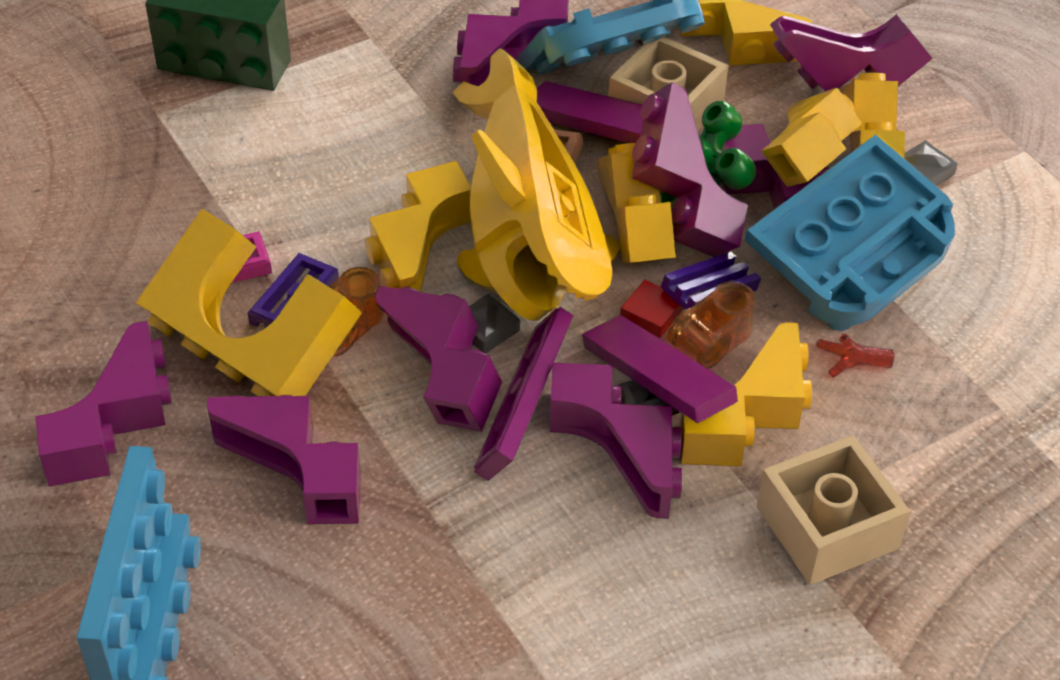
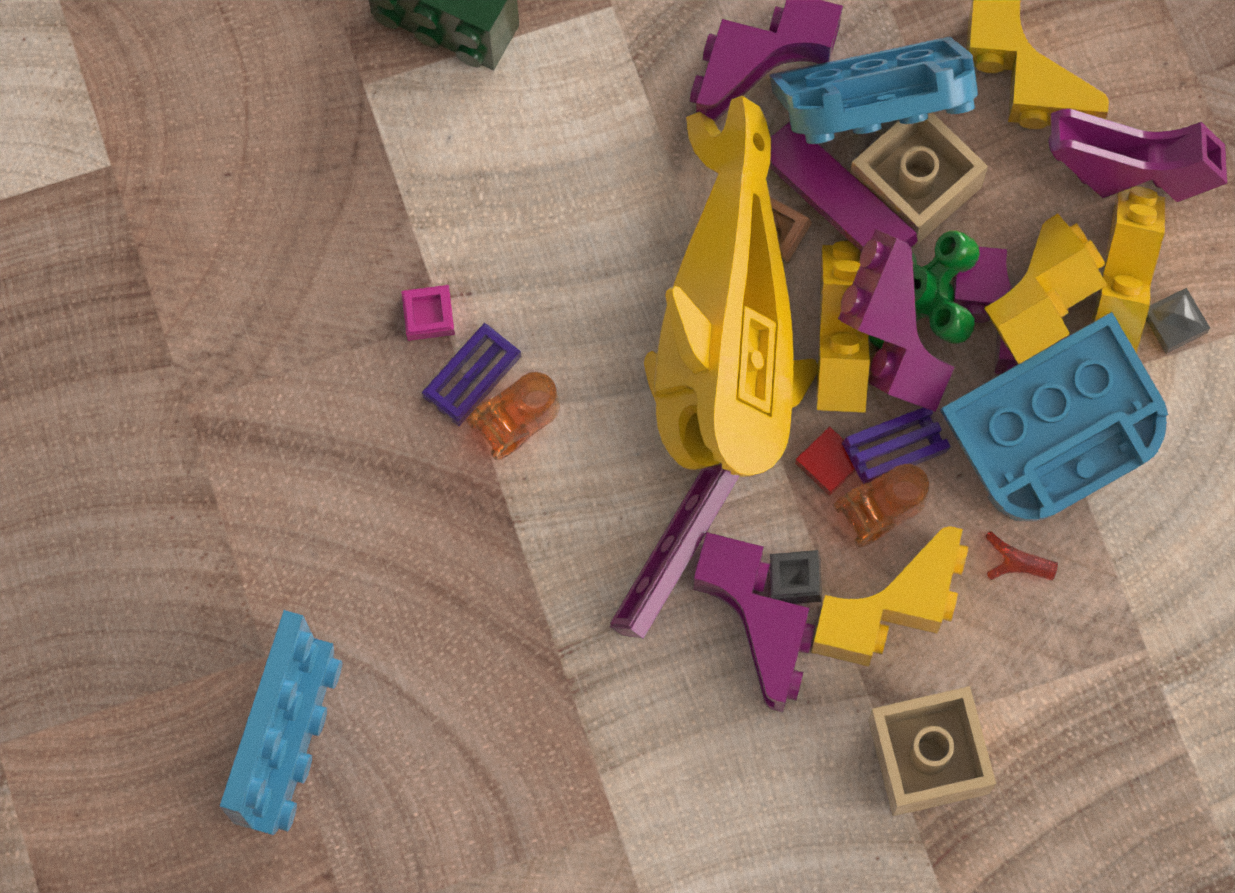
camera: 15 degrees right, 25 degrees up
(124, 400) = (292, 482): magenta arch -> none
(280, 437) = (434, 556): magenta arch -> none
(281, 357) = (362, 383): yellow arch -> none
(403, 238) = (593, 329): yellow arch -> none
(442, 332) = (606, 468): magenta arch -> none
(494, 323) = (650, 452): dark grey tile -> none
(660, 368) = (809, 555): magenta tile -> none

